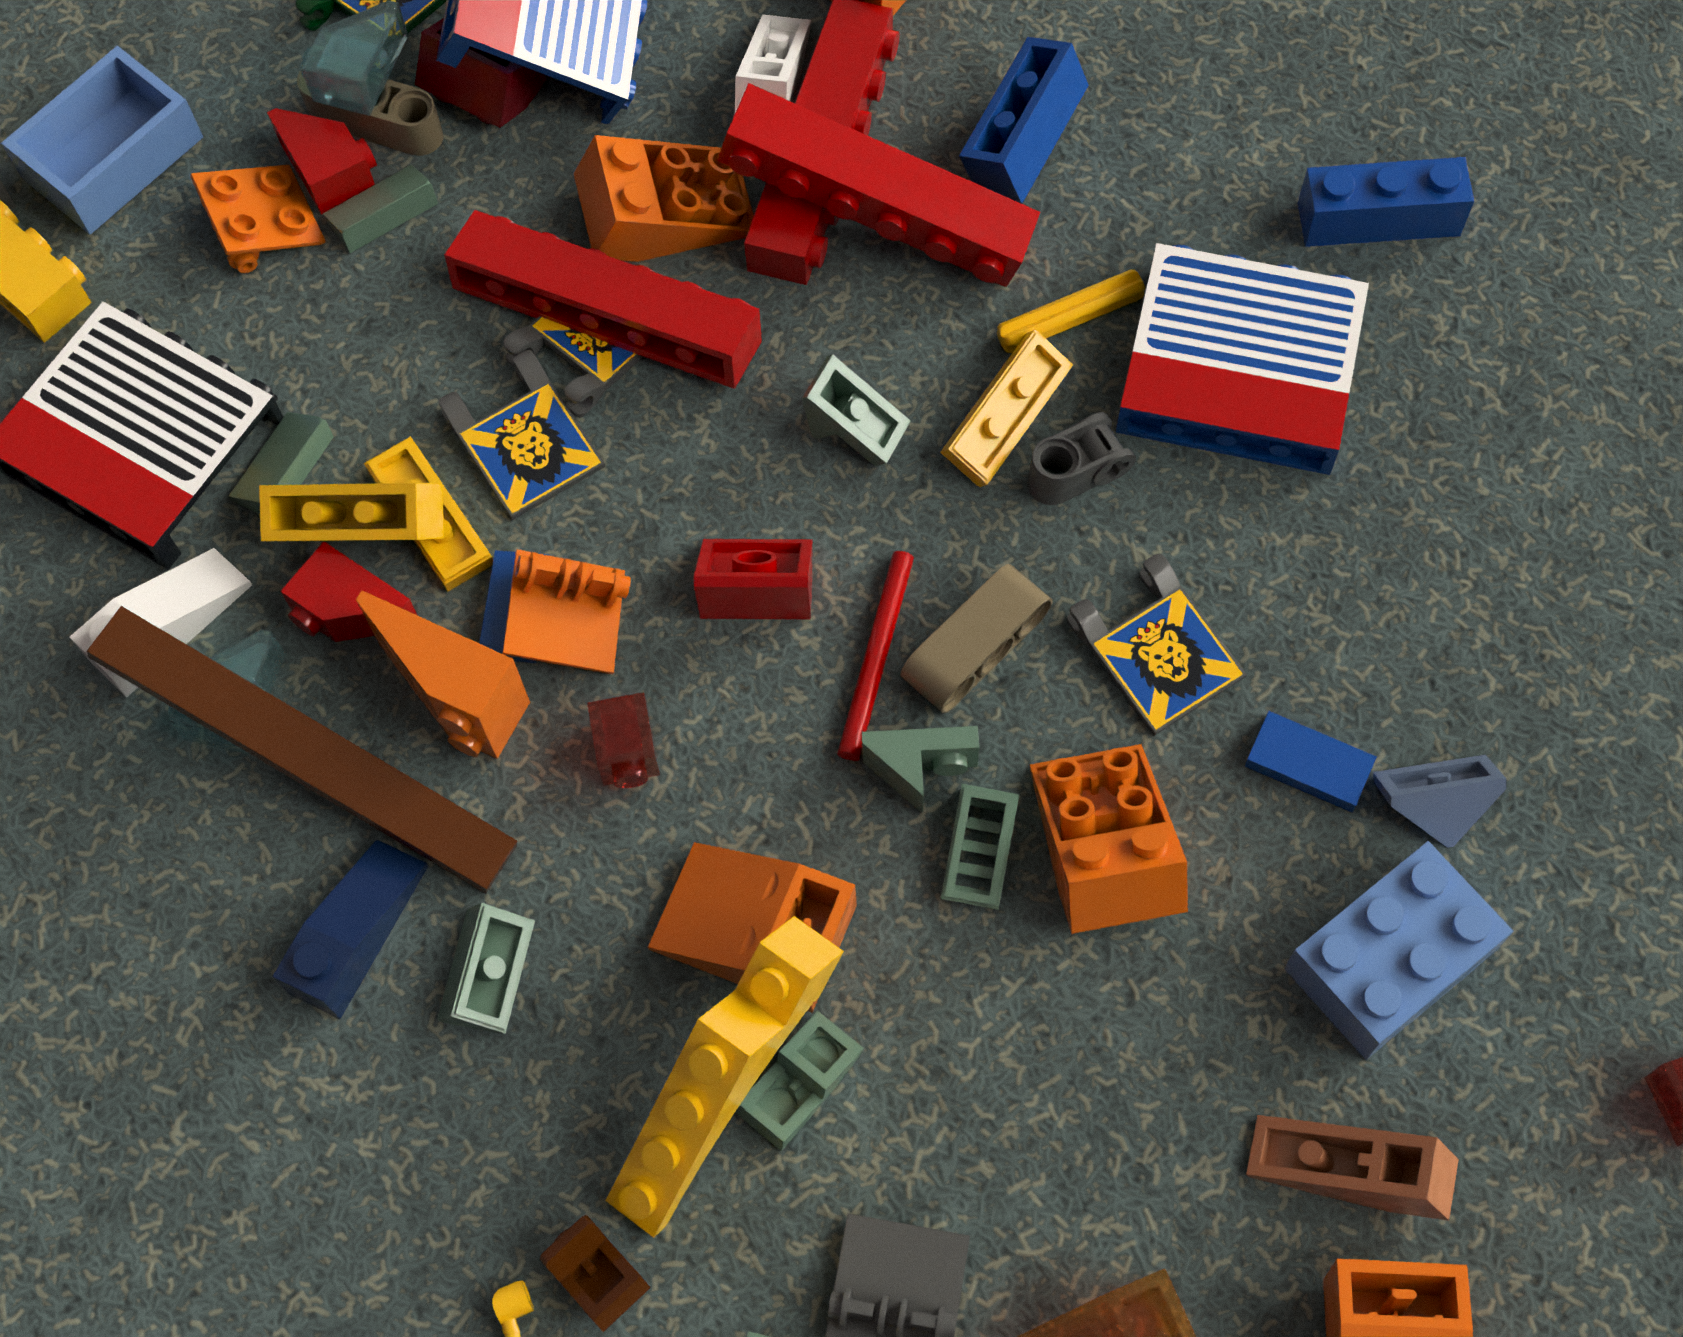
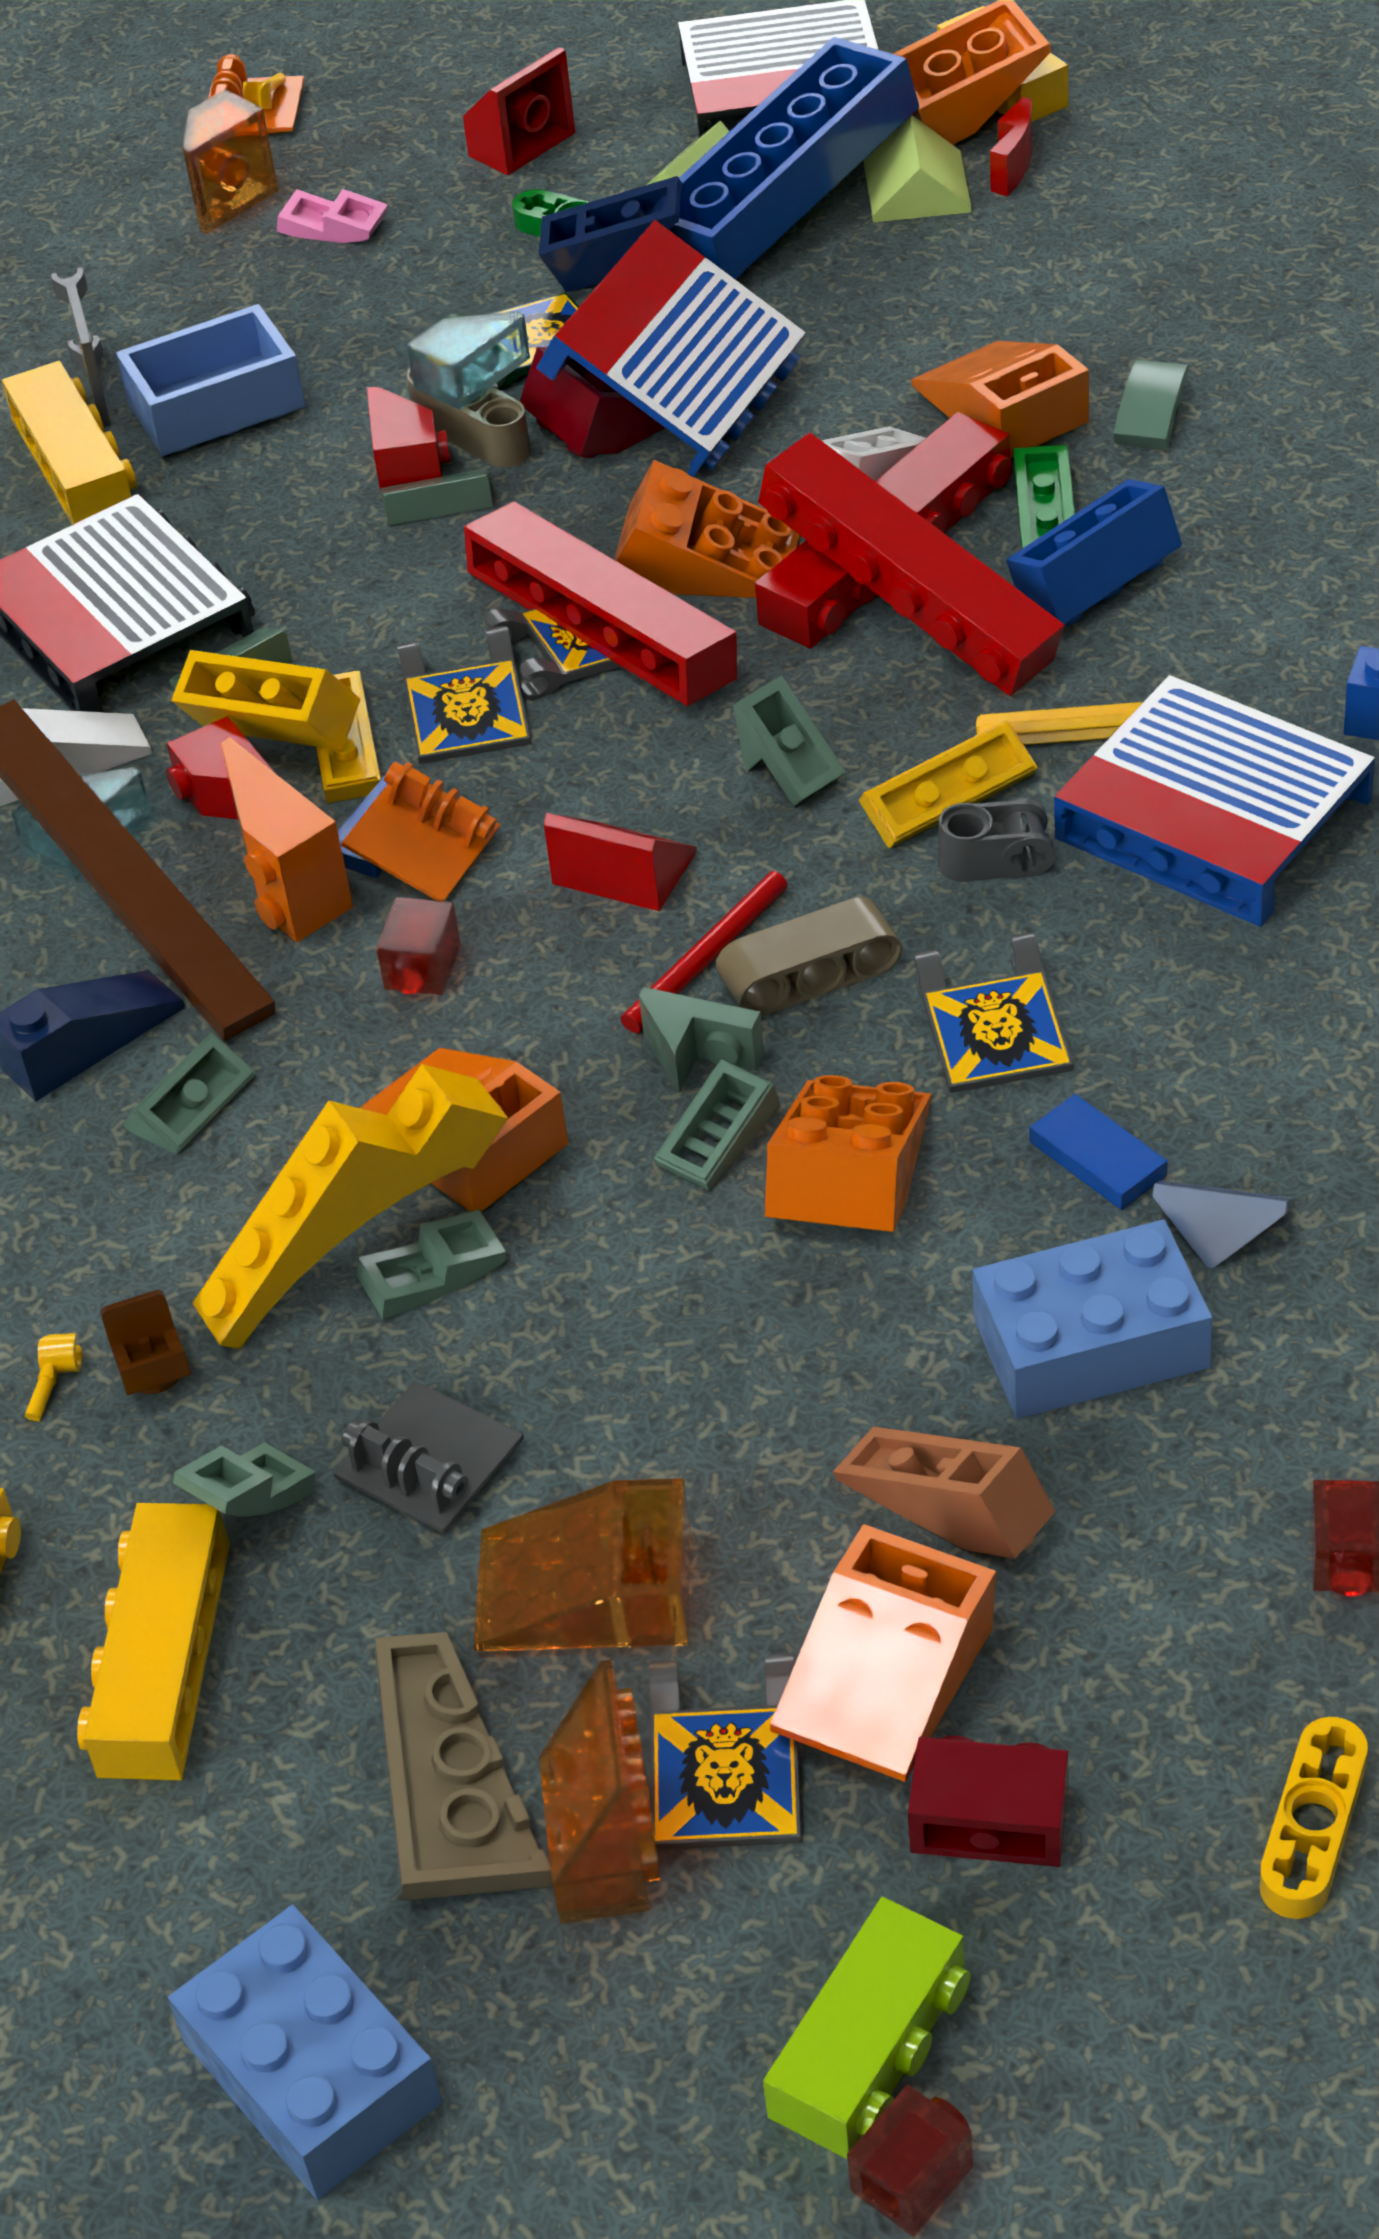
camera: 25 degrees right, 20 degrees down
(256, 212) = (317, 468): orange hinge -> none
(944, 68) = (1042, 490): none -> green plate

